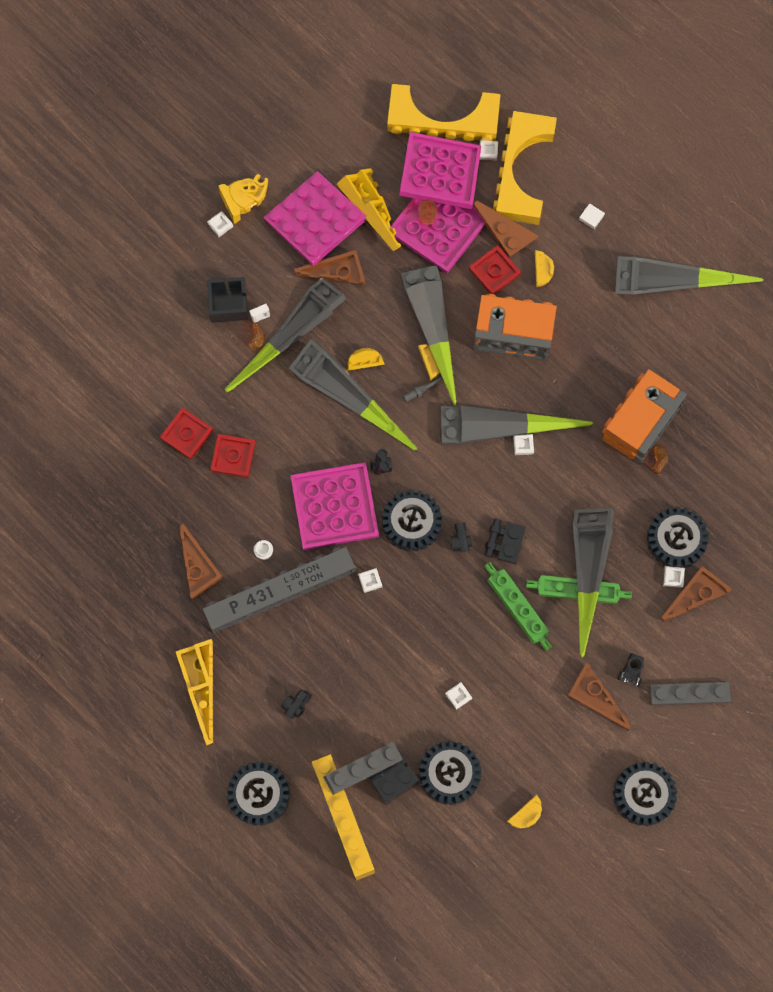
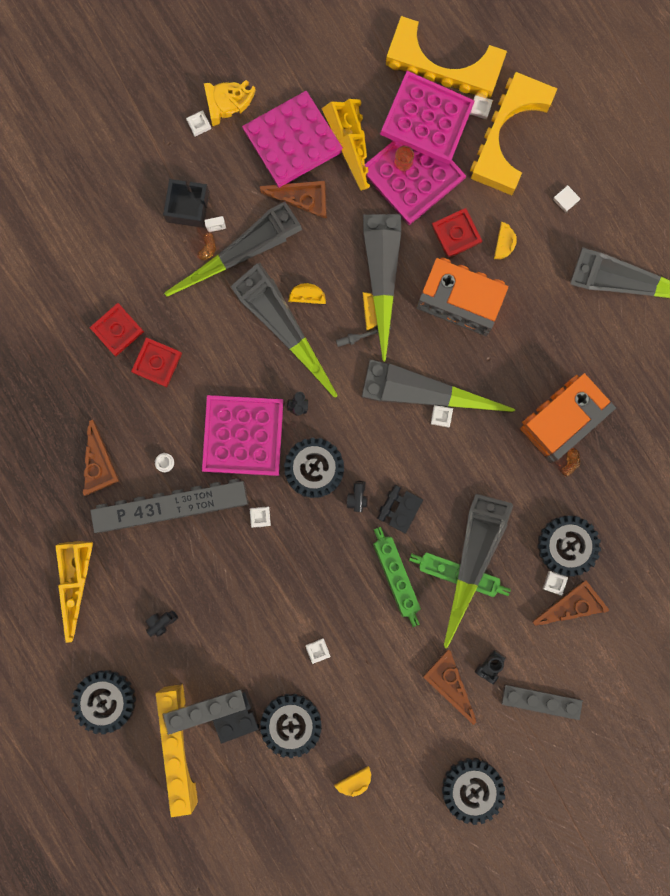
camera: 15 degrees right, 10 degrees up
(508, 233) = (478, 196): dark orange wing -> none

